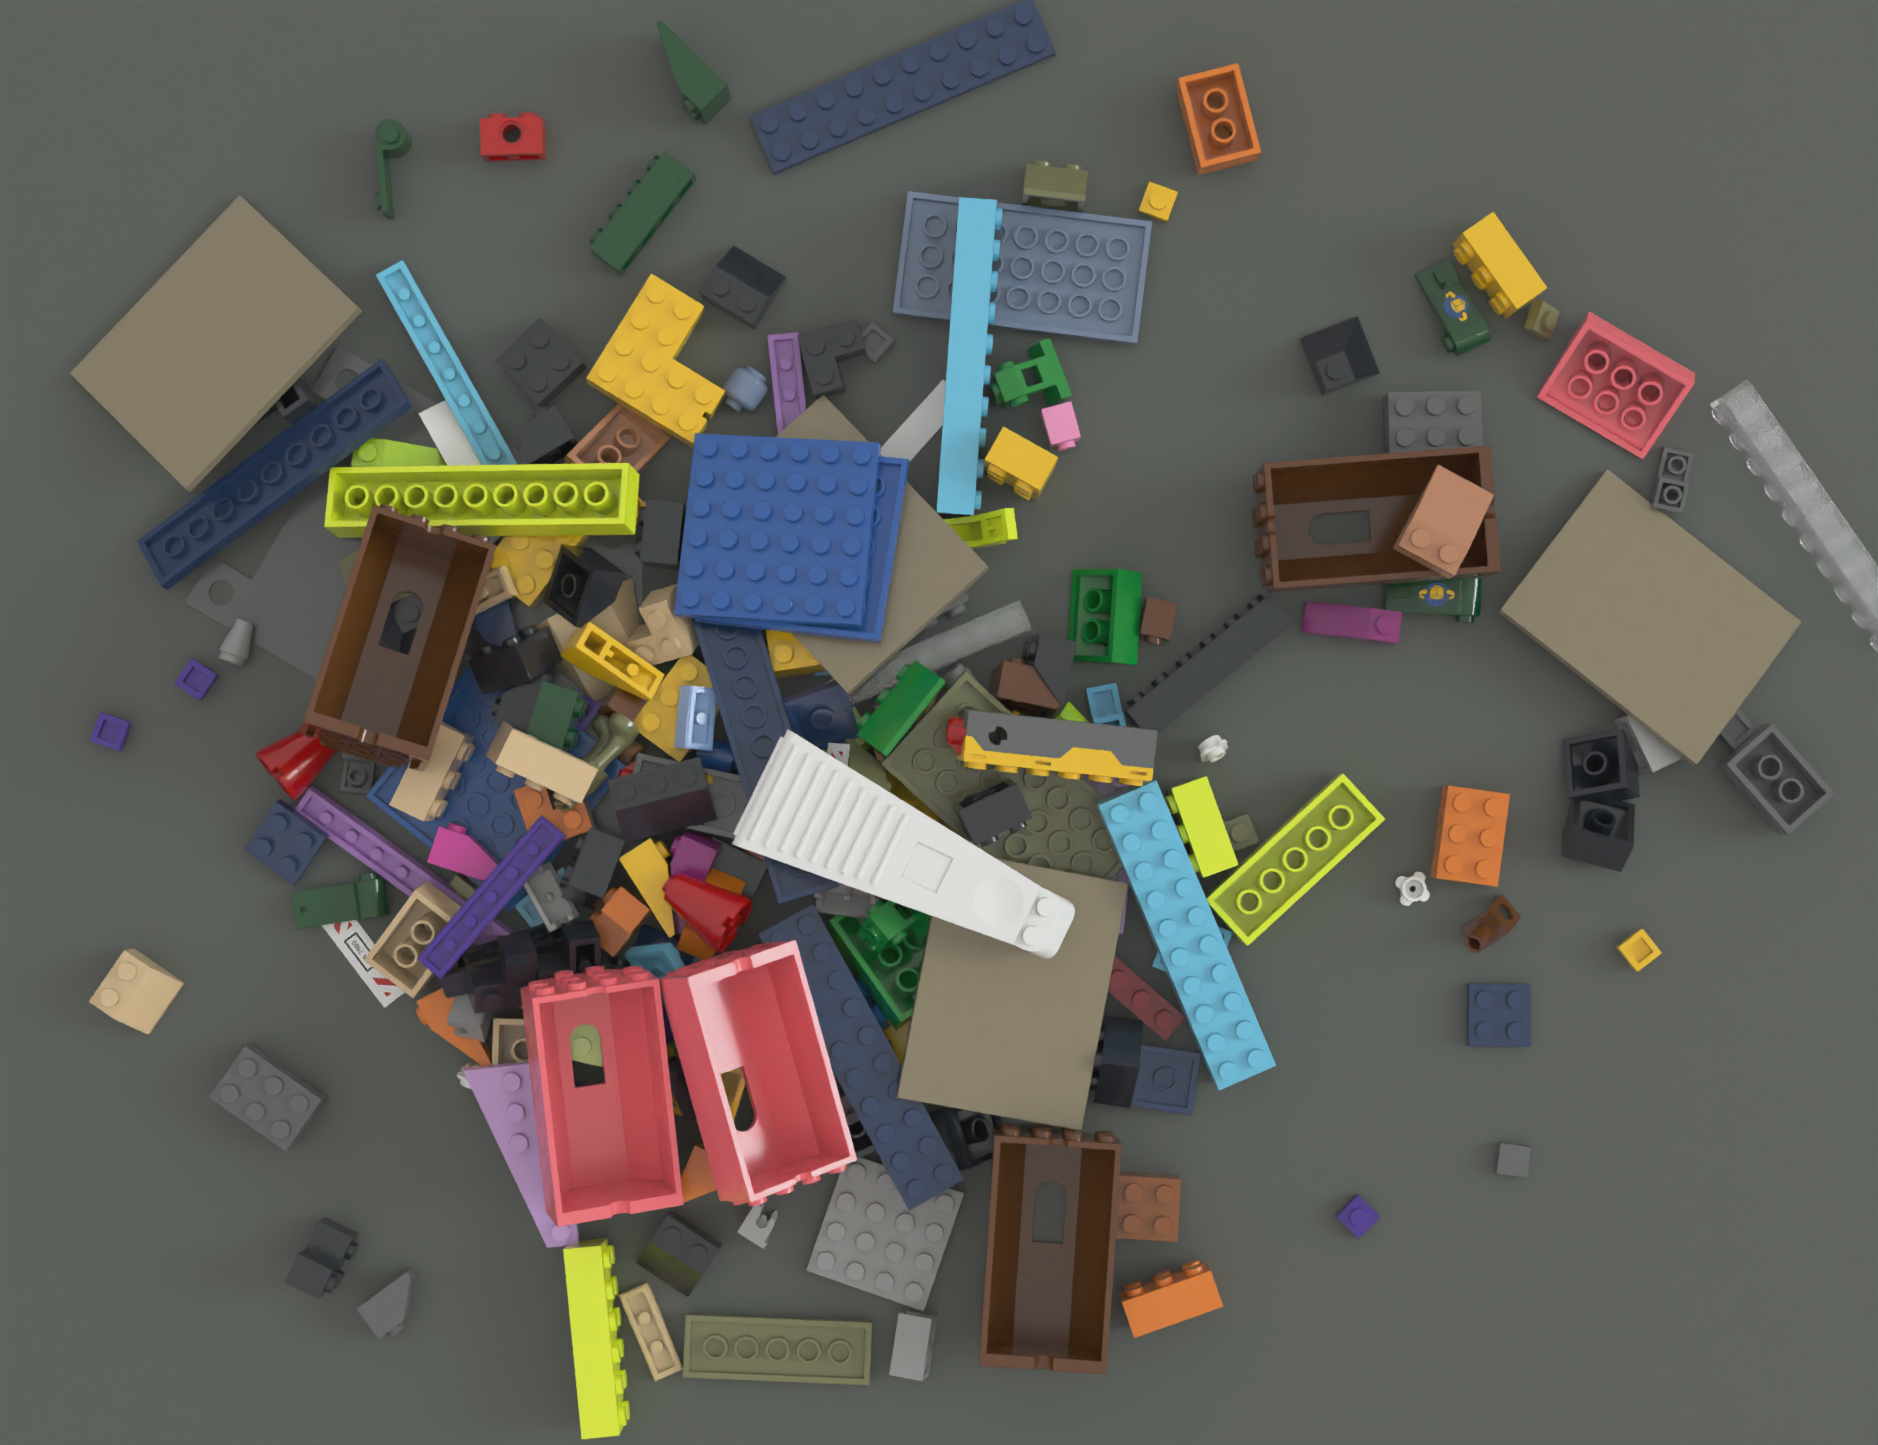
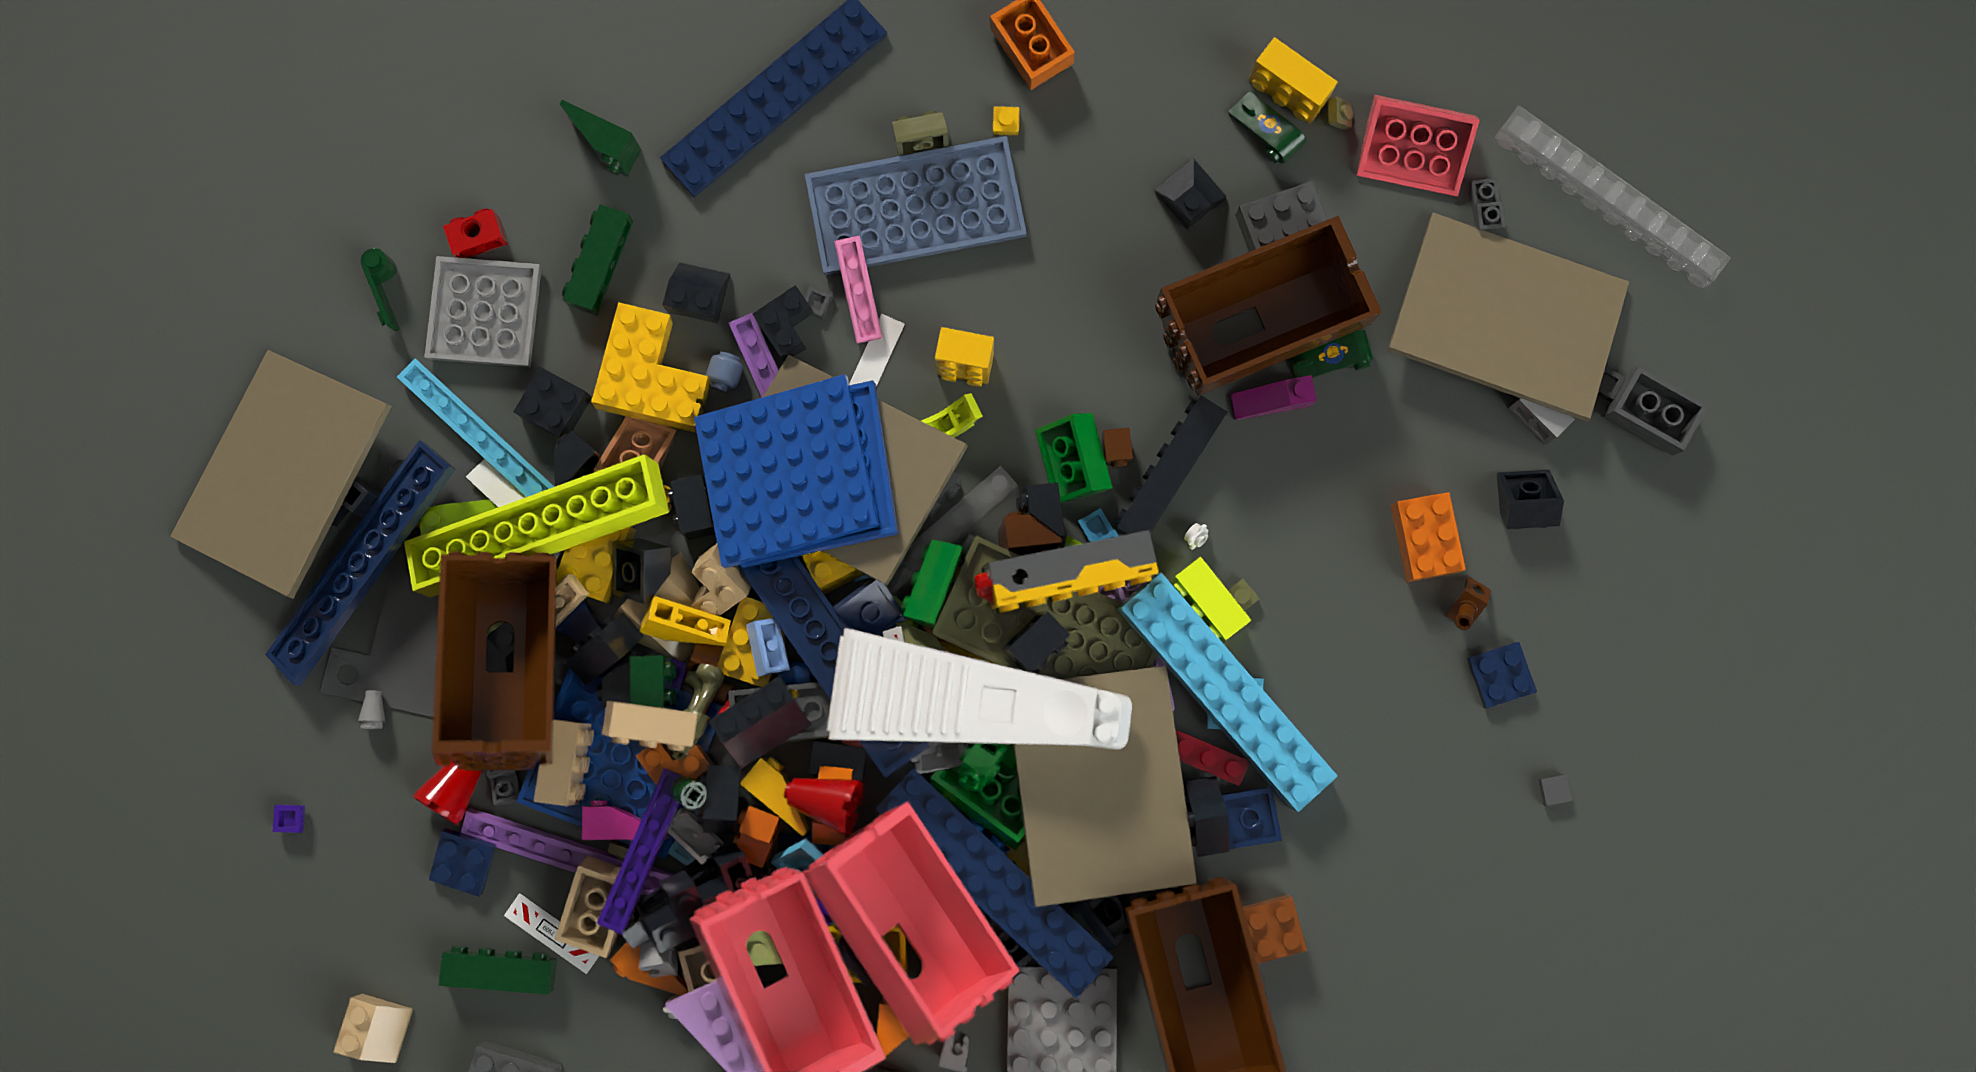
camera: 15 degrees left, 5 degrees down
(196, 679) = (347, 751): dark purple plate -> none
(290, 974) = (498, 971): none -> dark green brick
(341, 902) = (523, 897): dark green door -> none
(494, 230) = (483, 311): none -> light grey plate
(560, 850) = (682, 790): none -> dark green wheel
(693, 857) = (802, 761): magenta slope -> none
(925, 345) = (858, 289): none -> bright pink tile
(966, 356) = (892, 279): medium azure brick -> none
(1010, 386) = (937, 299): green tile -> none
(1060, 426) = (987, 318): bright pink brick -> none
(1170, 1298) = (1317, 1000): orange brick -> none
(1293, 859) = (1293, 602): neon yellow brick -> none
(1357, 1216) = (1446, 879): dark purple plate -> none
(1420, 893) = (1395, 603): white plate -> none
(1444, 522) = (1323, 288): nougat slope -> none
(1600, 767) = (1513, 448): black slope -> none
(1638, 949) = (1595, 584): yellow plate -> none

